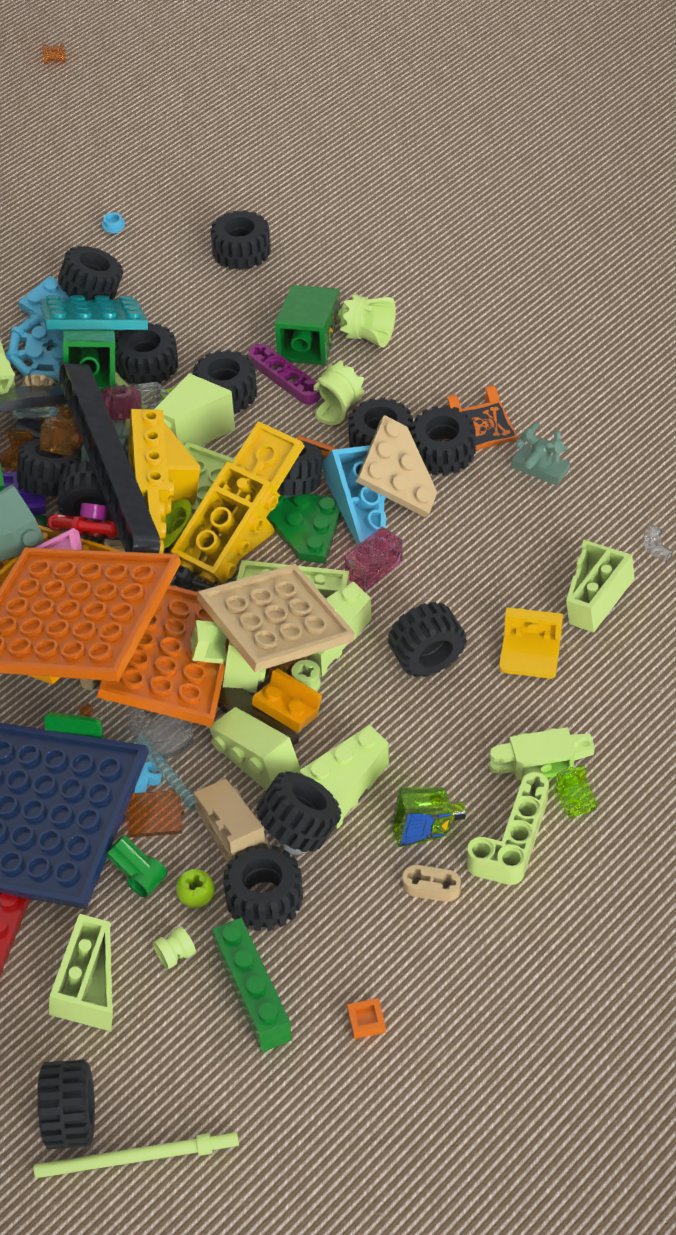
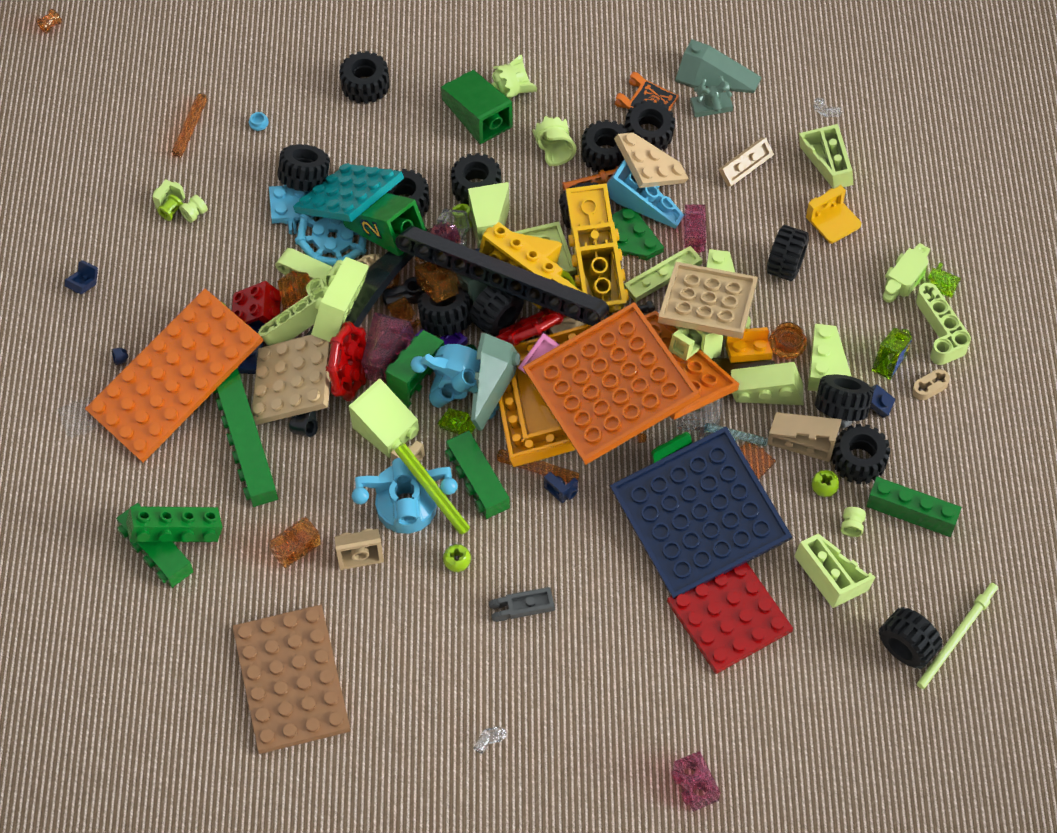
camera: 45 degrees left, 10 degrees up
(39, 412) = (409, 280): clear light blue bar -> none
(56, 193) = (189, 125): none -> clear orange axle
(95, 512) = (529, 315): magenta beam -> none
(142, 871) = (788, 496): green piece -> none
(288, 370) = (499, 146): magenta beam -> none
(330, 724) = (788, 340): none -> clear orange piece
(352, 853) = (881, 401): none -> dark blue bracket
(366, 1018) = (980, 478): orange tile -> none
(505, 535) = (746, 161): none -> plate
(582, 434) = (708, 63): none -> sand green wedge

